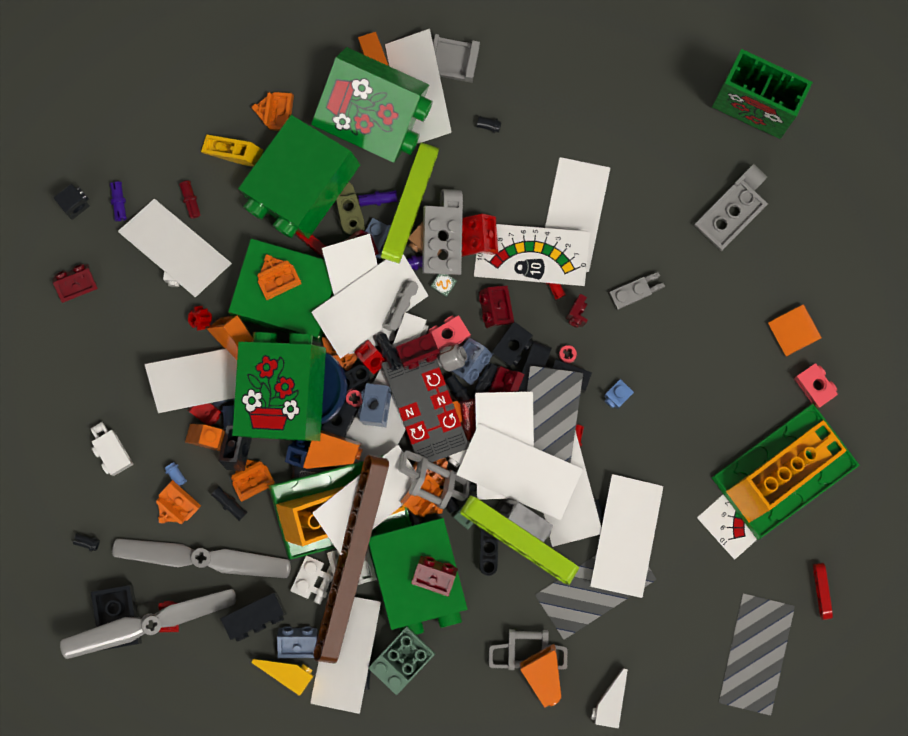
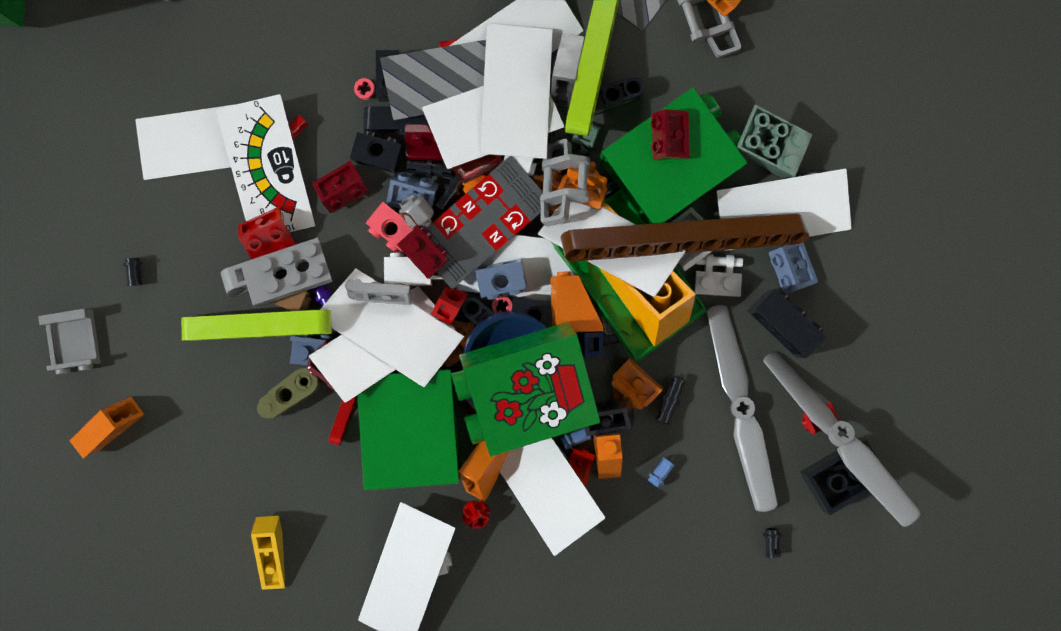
camera: 110 degrees left, 5 degrees up
(110, 450) = (662, 557): white brick -> none
(175, 504) = (694, 459): orange slope -> none
(190, 199) = (344, 579): dark red axle -> none
(275, 109) = (205, 520): orange slope -> none
(277, 277) = (397, 442): orange slope -> none
(290, 675) = (831, 263): yellow slope -> none
(298, 178) = (273, 463): green brick -> none
(372, 105) = (155, 410): green brick -> none
(378, 198) = (264, 365): dark purple pin -> none
(388, 352) = (436, 285): black pin -> none
(417, 58) = (119, 366): white sticker -> none
(443, 284) = (336, 255): tile -> none
(574, 315) = (311, 94): dark red bracket -> none
(618, 394) = (389, 17): medium blue bracket -> none
(634, 291) = (266, 40): light grey hinge -> none

